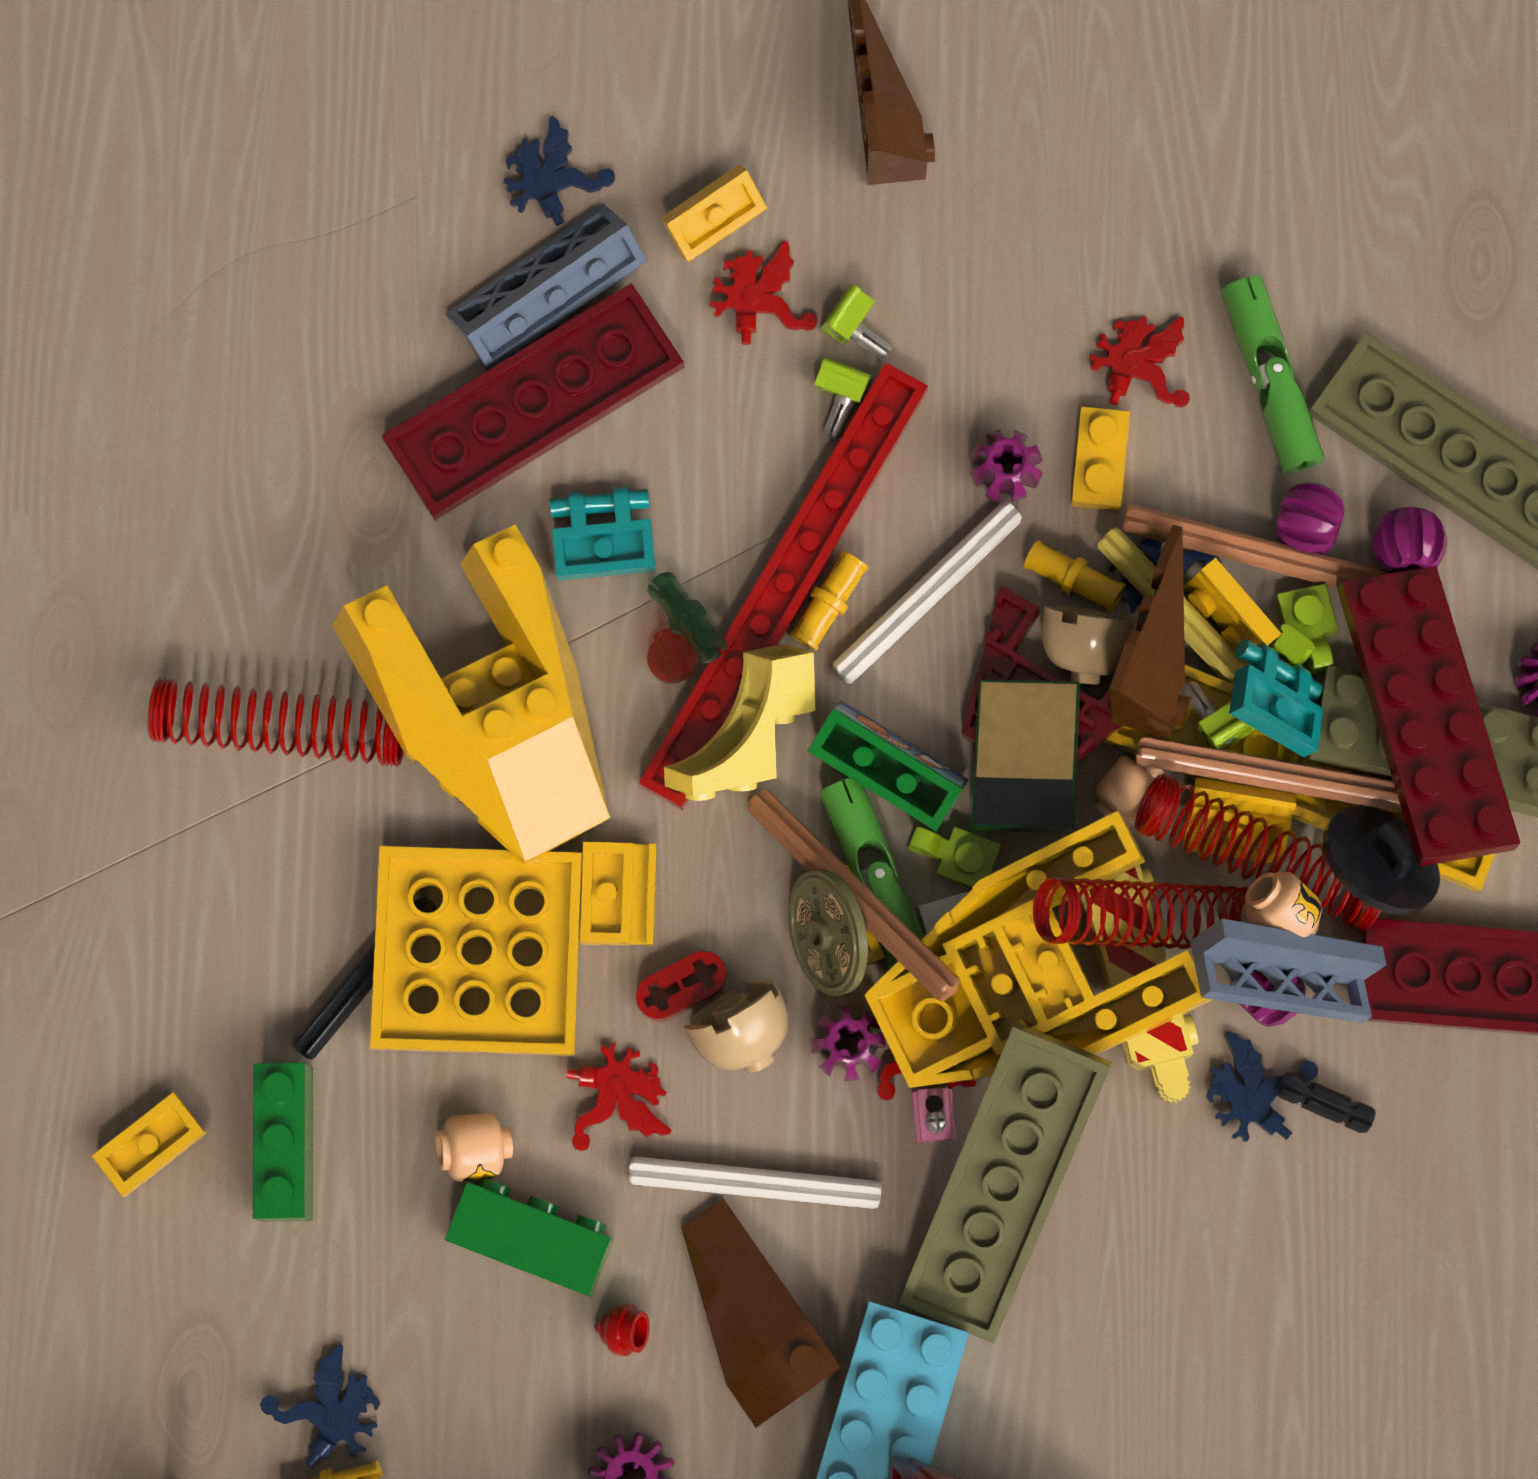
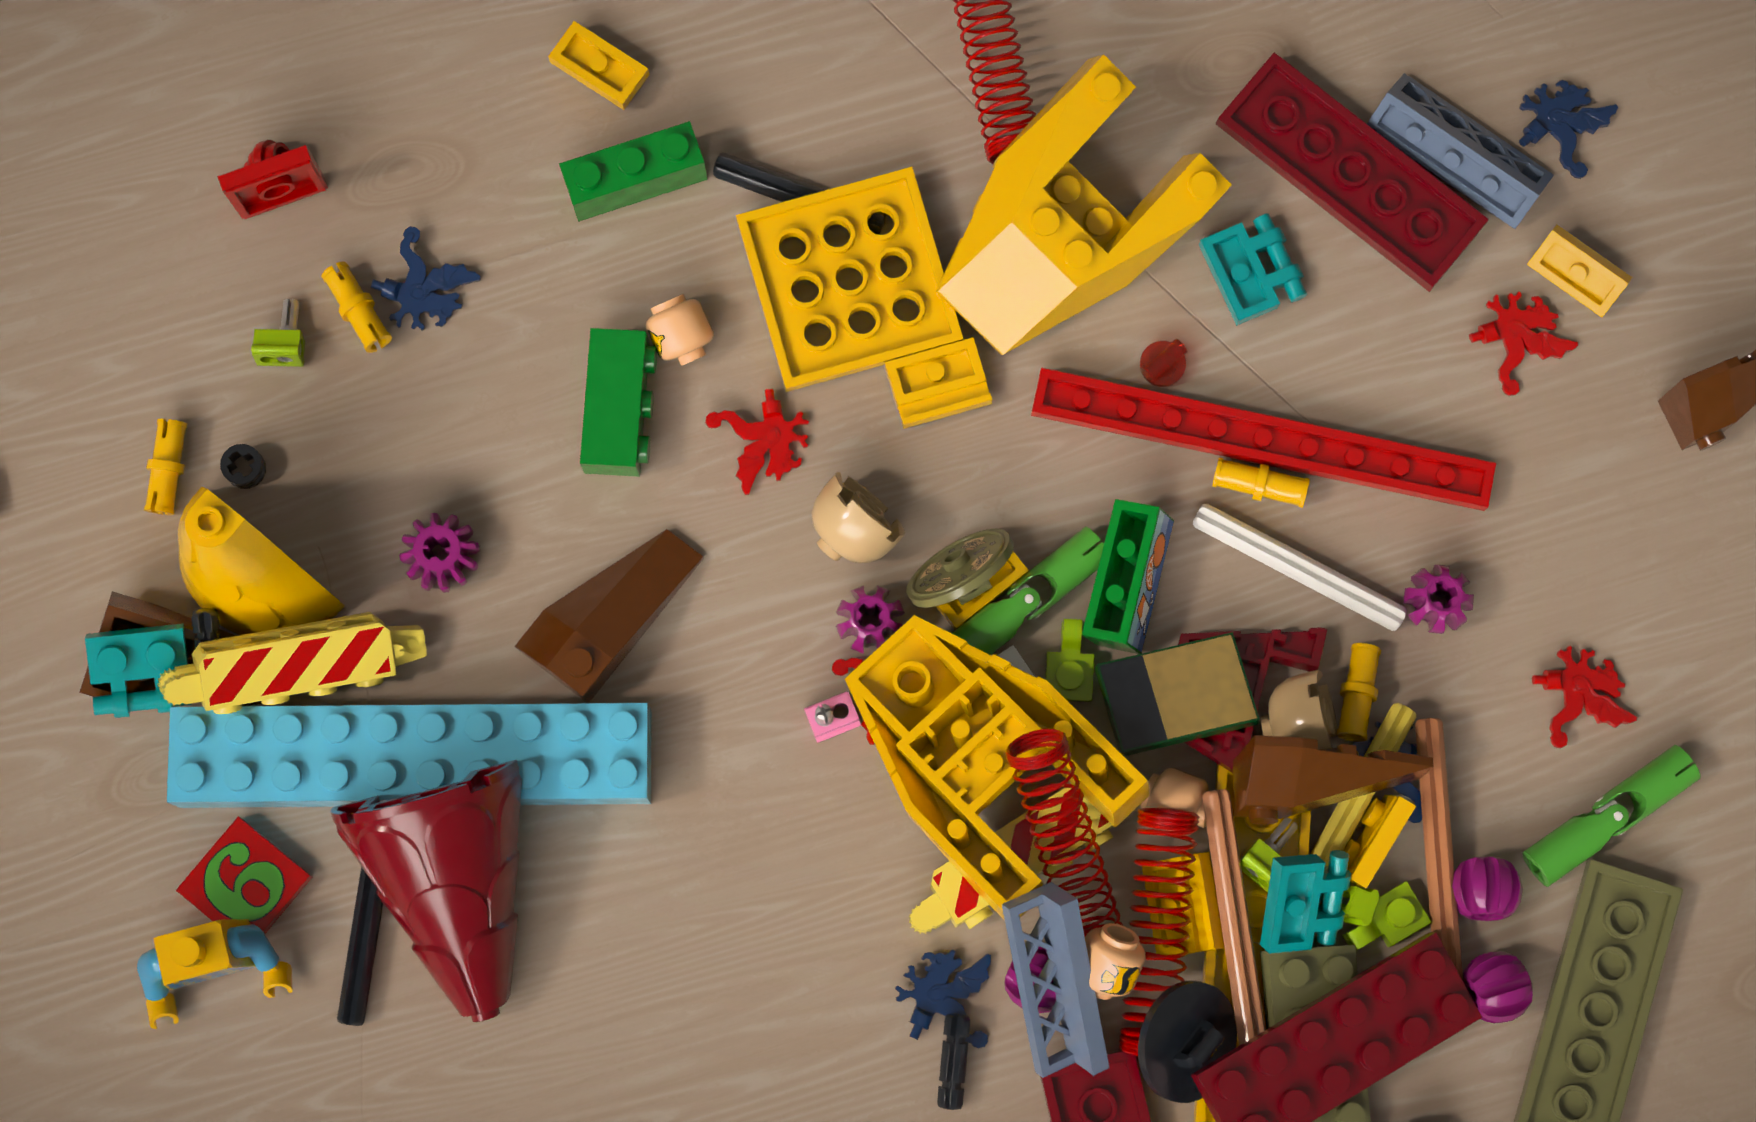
camera: 70 degrees right, 0 degrees up
(624, 1329) = (563, 507): red plate -> none
(675, 975) = (883, 455): red beam -> none
(687, 617) = (1202, 362): clear green pin -> none
(754, 1182) = (724, 580): white axle -> none
(772, 691) = (1094, 446): light yellow arch -> none
(846, 324) = (1524, 418): lime piece -> none
(847, 385) = (1463, 438): lime piece -> none
(877, 916) = (992, 593): nougat axle -> none
(1004, 1182) = (788, 787): olive plate -> none
(1100, 458) = (1476, 684): yellow plate -> none

